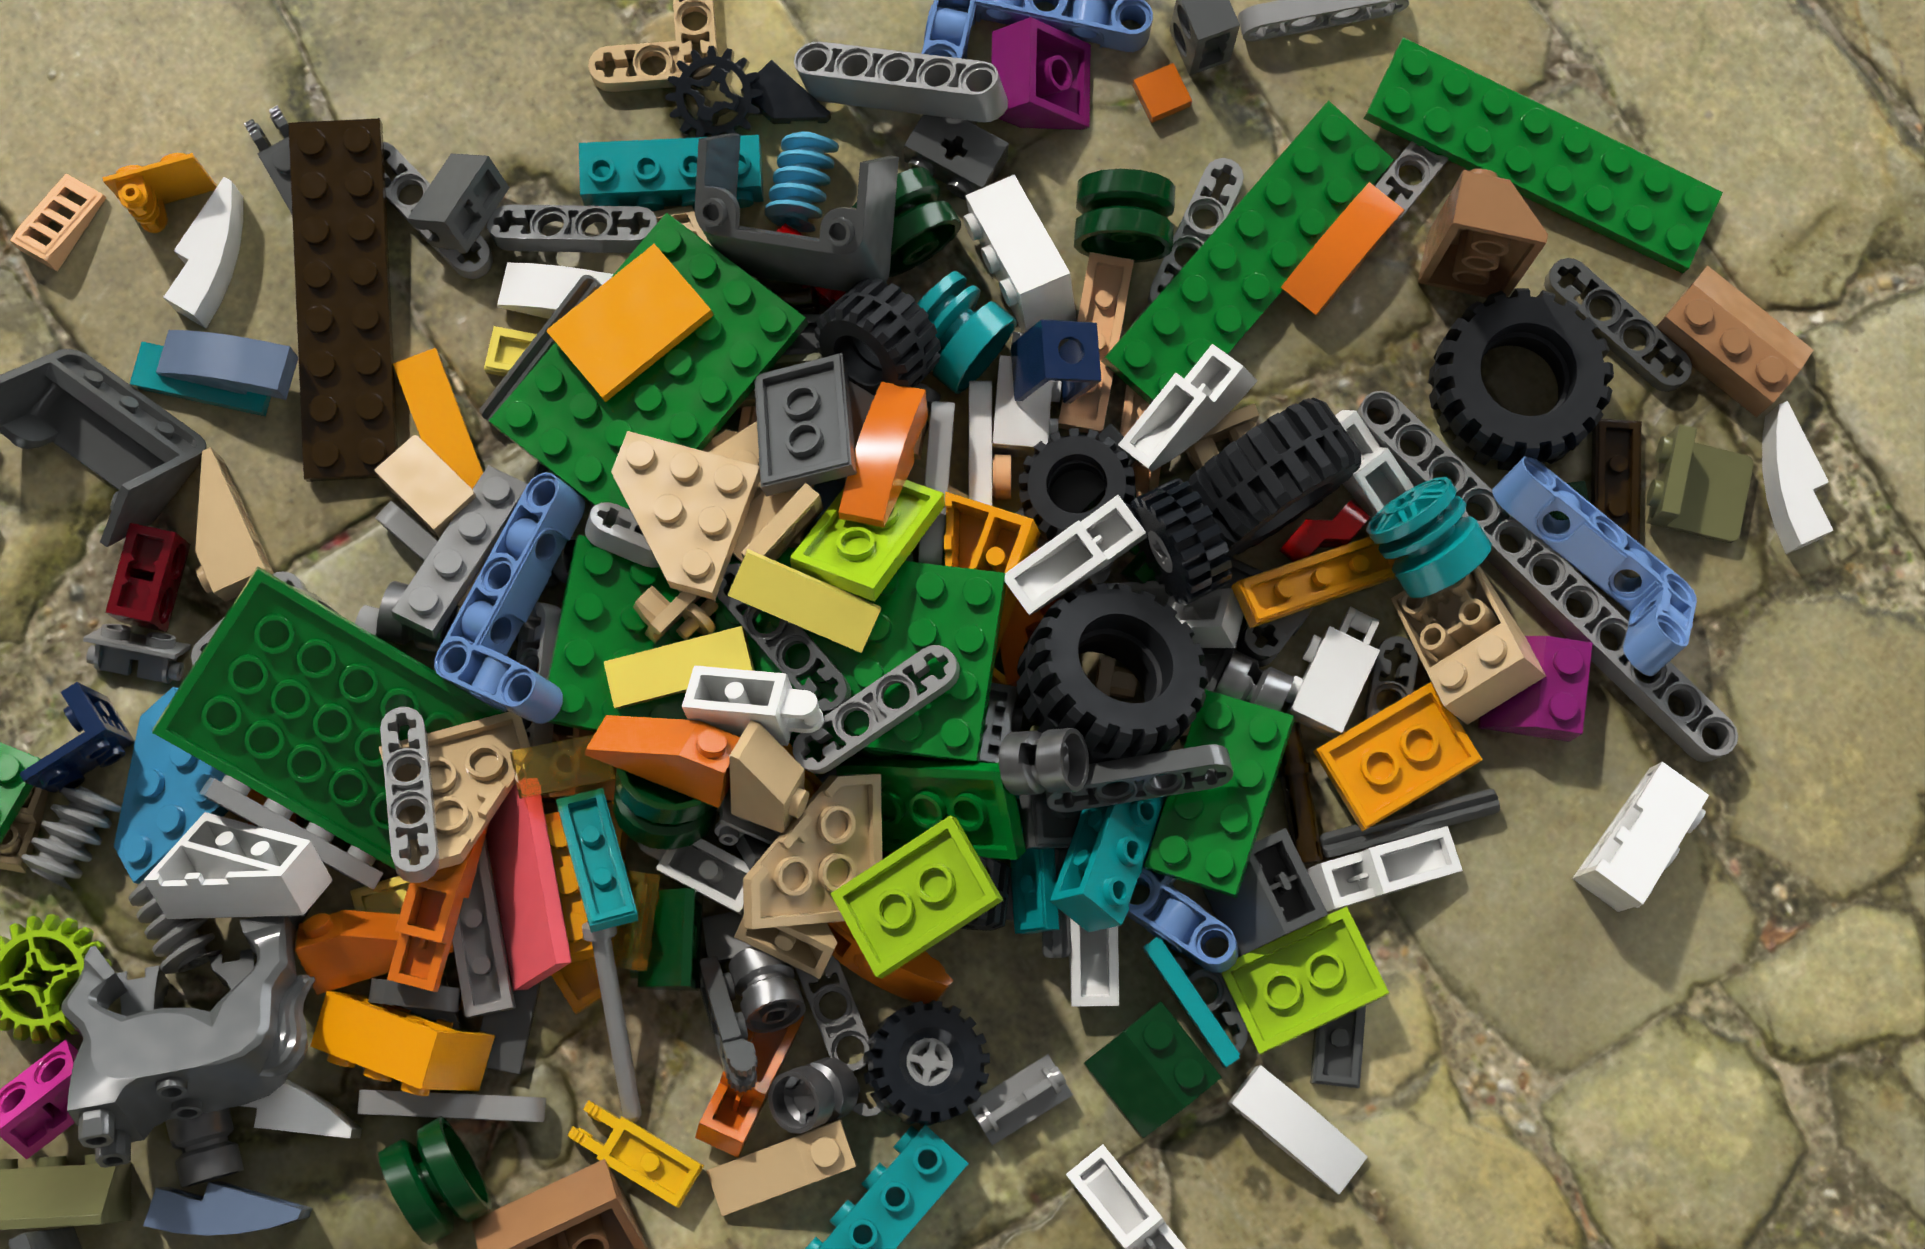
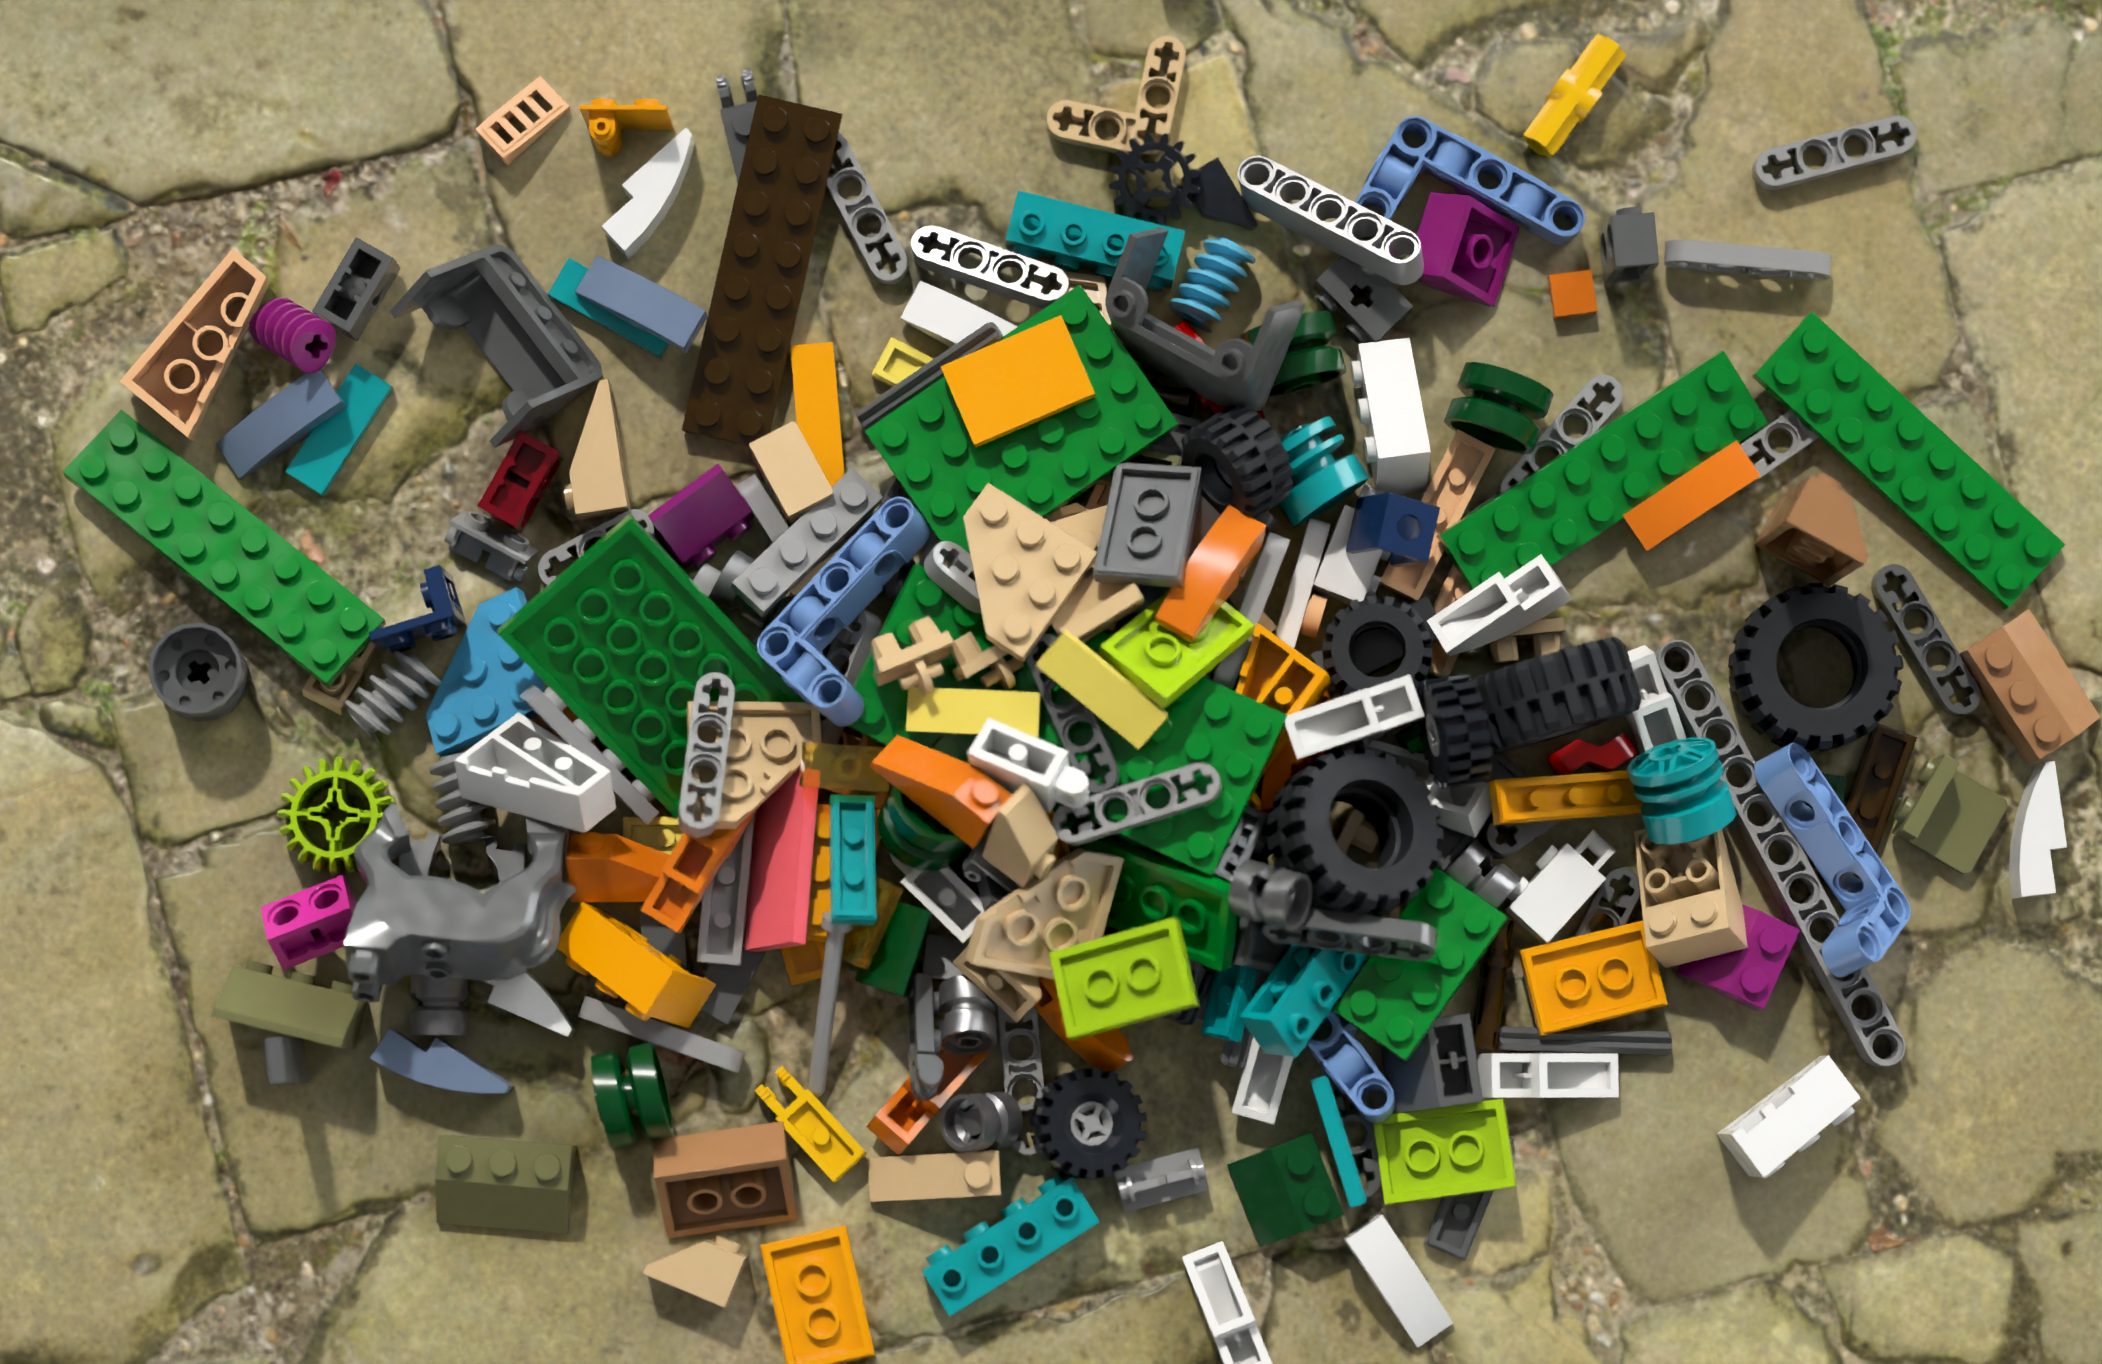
camera: 15 degrees right, 5 degrees up
(346, 557) = (702, 517): none -> magenta slope
(404, 995) = (644, 924): dark grey beam -> none
(459, 201) = (893, 212): dark grey hinge -> none
(601, 634) = (919, 659): none -> tan hips

